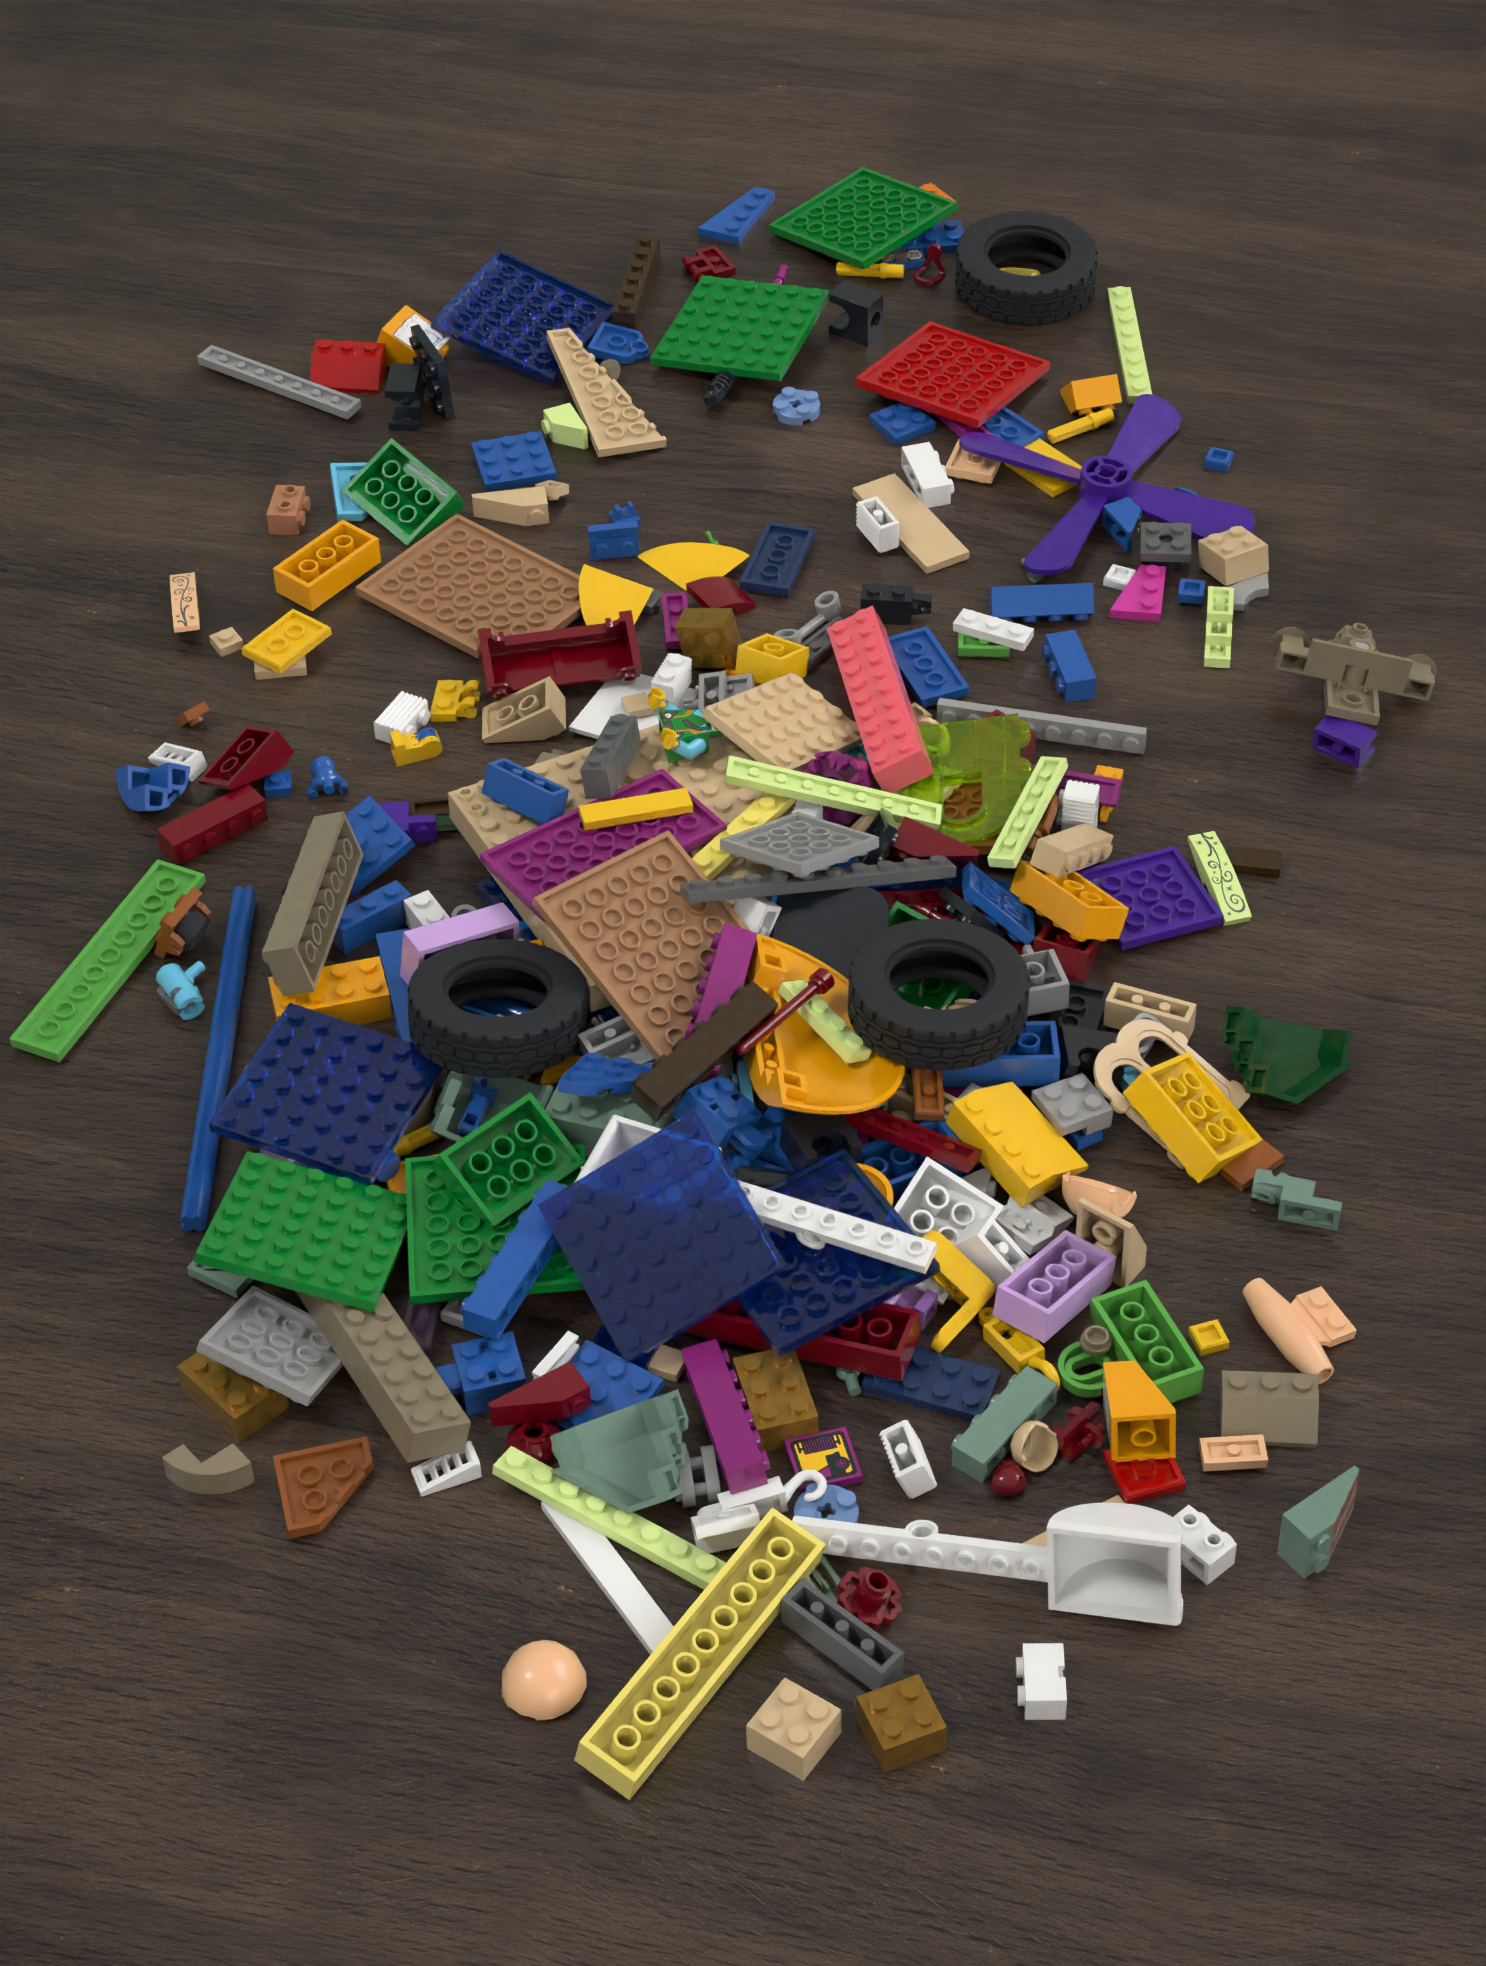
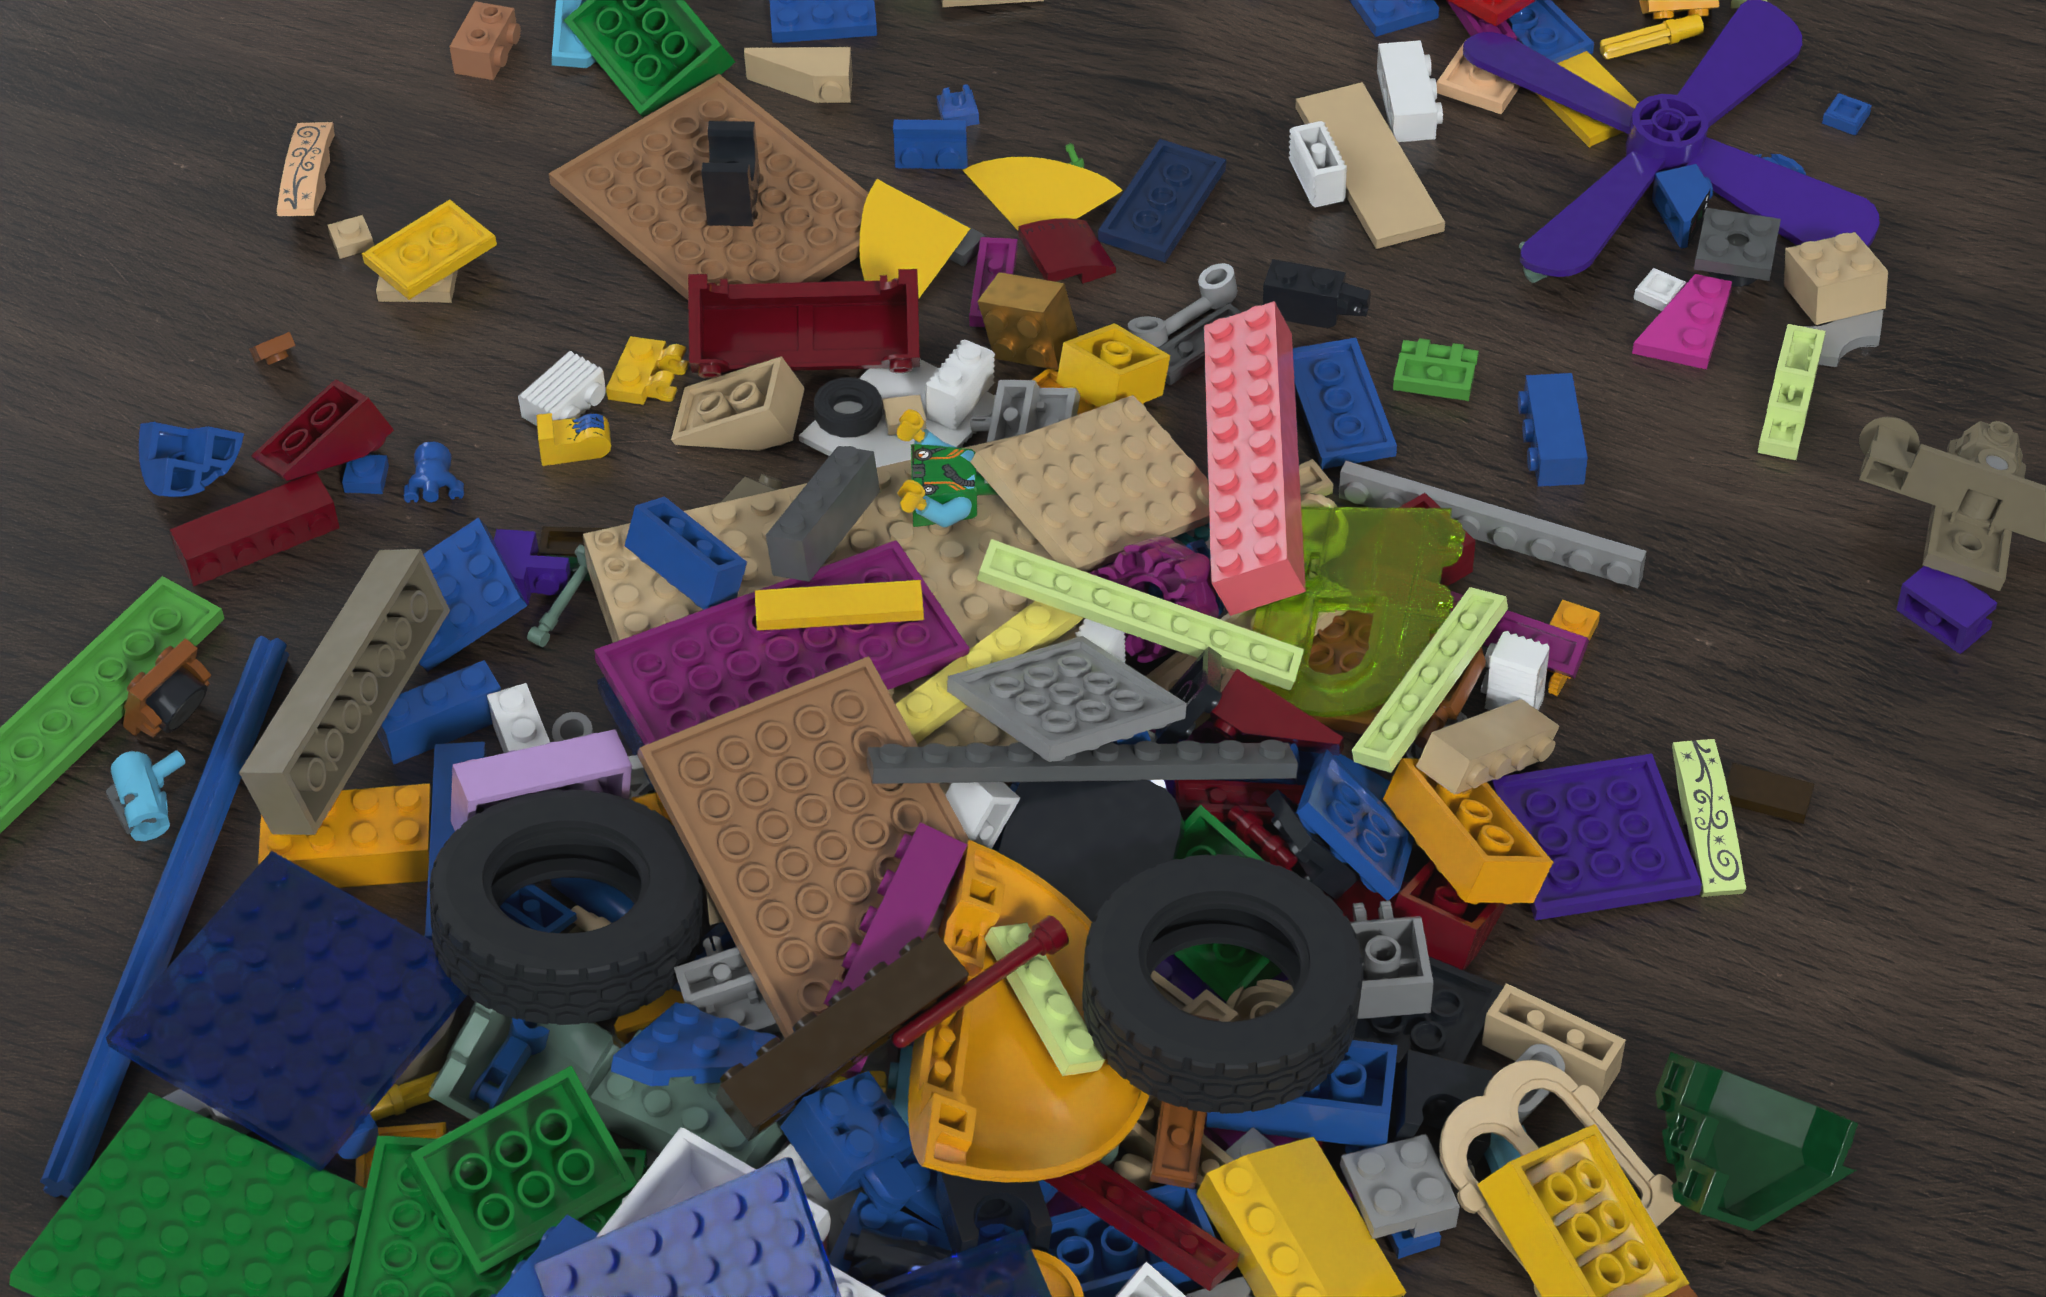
camera: 10 degrees right, 5 degrees up
(181, 756) = (239, 417): white slope -> none
(327, 565) = (516, 135): light orange brick -> none
(429, 855) = (540, 634): none -> sand green piece
(486, 569) = (731, 174): none -> black piece
(554, 489) = (866, 51): tan plate -> none
(597, 695) = (848, 424): none -> black tyre
(993, 629) = (1451, 356): white plate -> none
(1042, 601) = (1532, 319): blue slope -> none
(1191, 591) = (1762, 327): blue plate -> none

